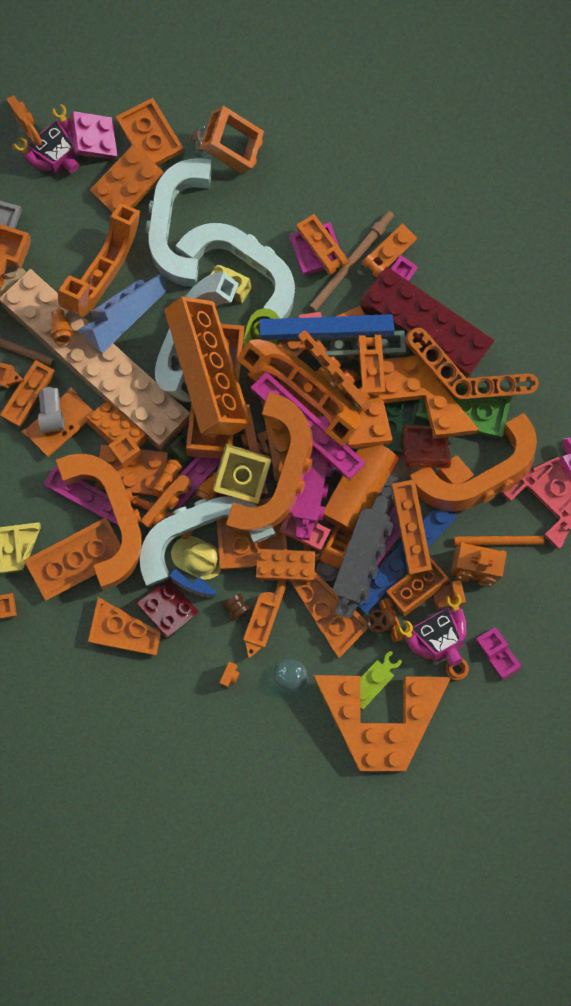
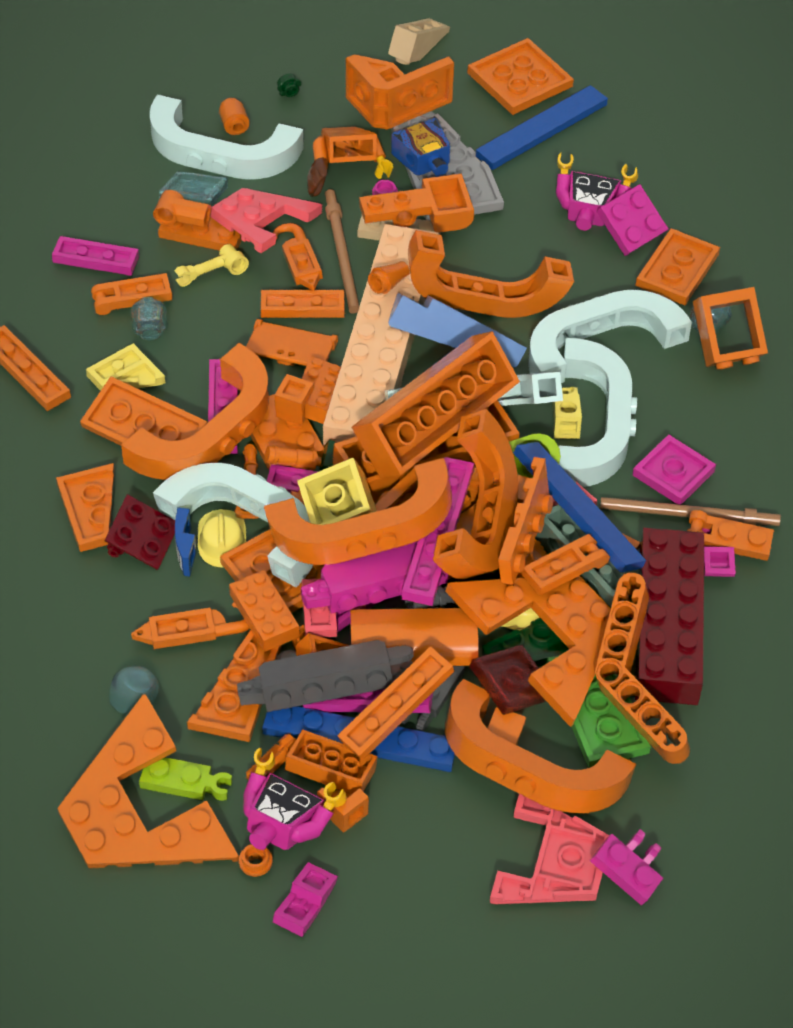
camera: 65 degrees right, 25 degrees down
(24, 119) = (598, 155): orange plate -> none
(51, 416) = (289, 329): light grey piece -> none
(127, 180) = (608, 270): orange plate -> none
(167, 501) = (267, 463): orange hinge -> none
(230, 675) = (97, 624): orange plate -> none
(236, 607) = (184, 593): reddish brown wheel -> none
(321, 243) = (679, 463): orange plate -> none
(375, 621) = (260, 736): reddish brown wheel -> none
(478, 564) = (401, 806): orange hinge -> none
(499, 540) = (455, 830): orange bar -> none

